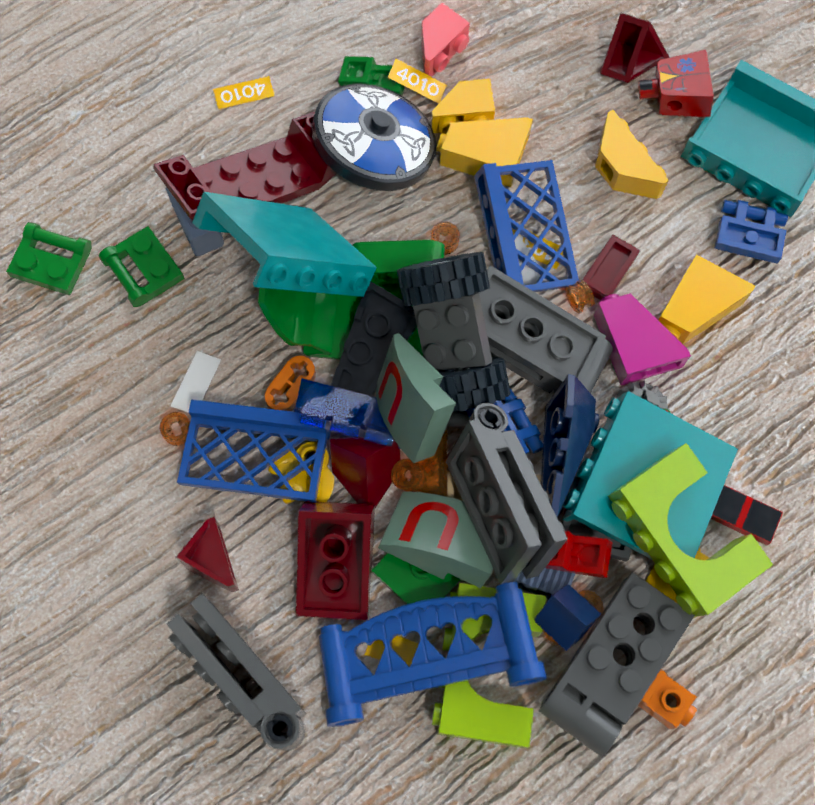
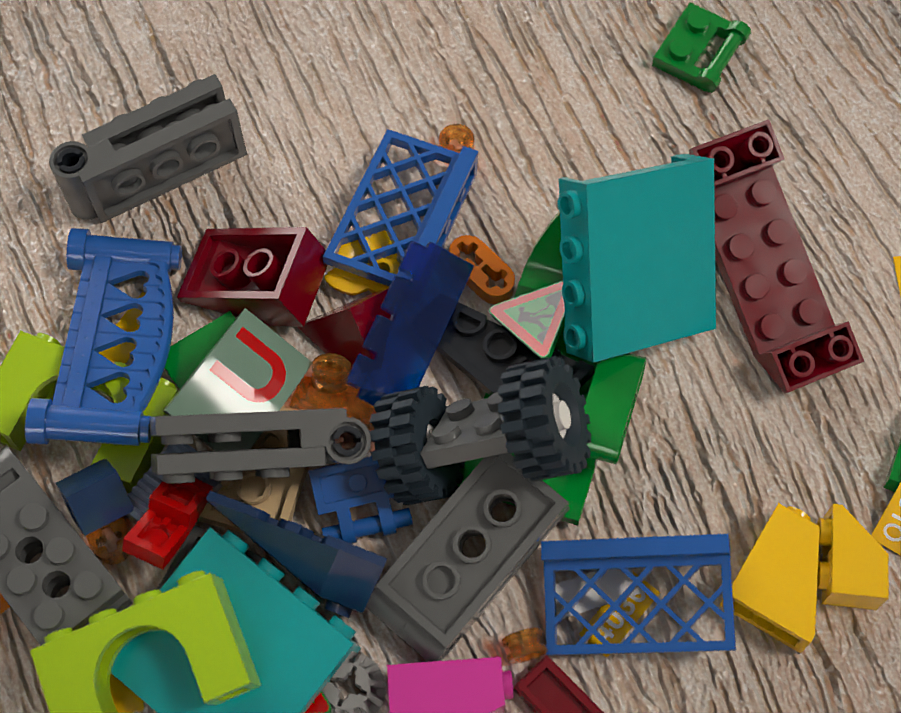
camera: 105 degrees right, 5 degrees down
(151, 261) = (659, 149): green plate -> none
(196, 380) = (512, 175): white sticker -> none
(208, 556) = (290, 147): dark red slope -> none
(337, 322) = (534, 318): none -> piece
(373, 137) = (812, 423): dish -> none
(412, 400) = (402, 367): sand green slope -> none
(444, 229) = (651, 478): clear orange bush -> none

